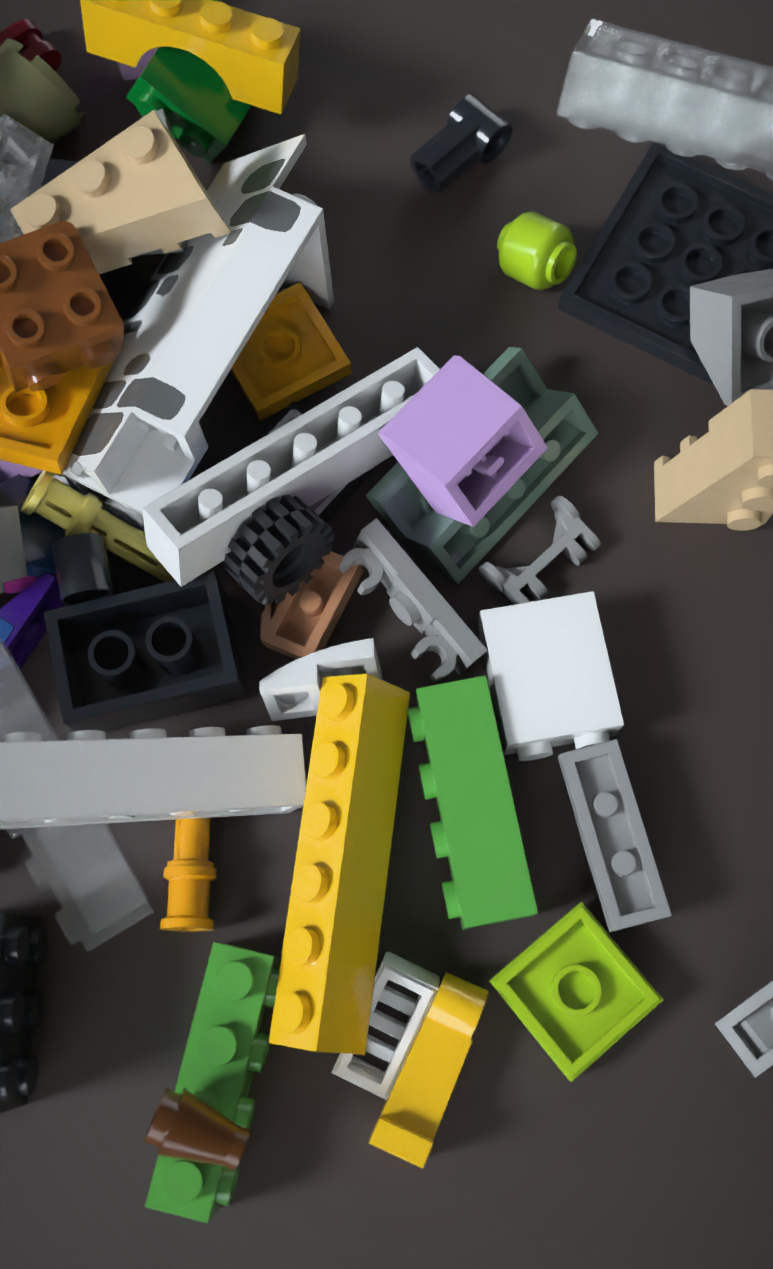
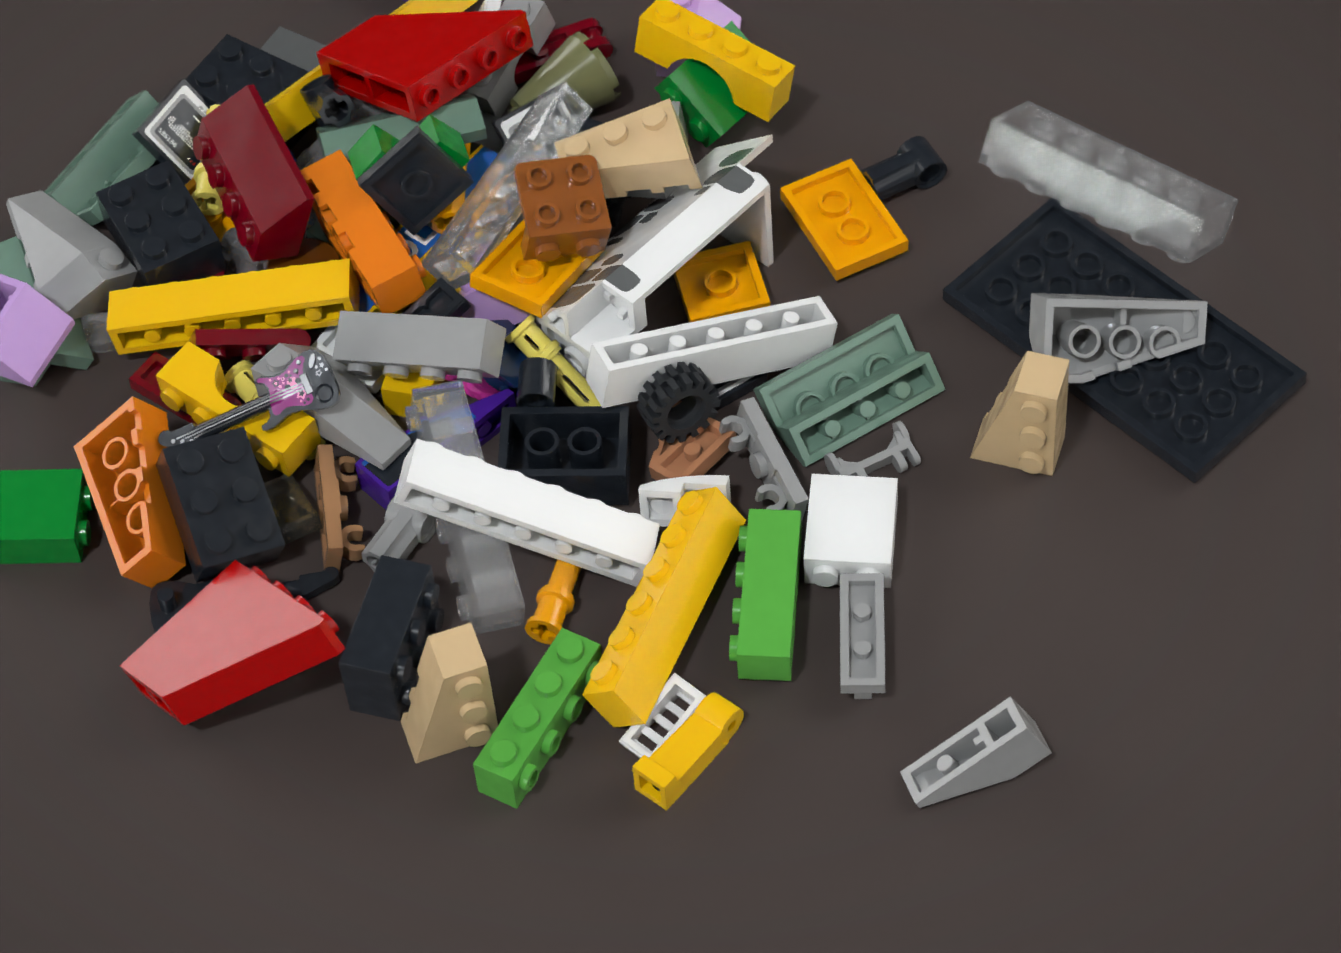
camera: 15 degrees right, 20 degrees down
(94, 1096) = (452, 697): none -> tan wedge
(195, 1131) = (520, 712): reddish brown cone -> none
(407, 226) = (844, 219): none -> light orange plate
(463, 441) = (830, 360): lavender slope -> none
(536, 250) = (936, 254): lime head -> none
(575, 991) = (805, 726): lime plate -> none

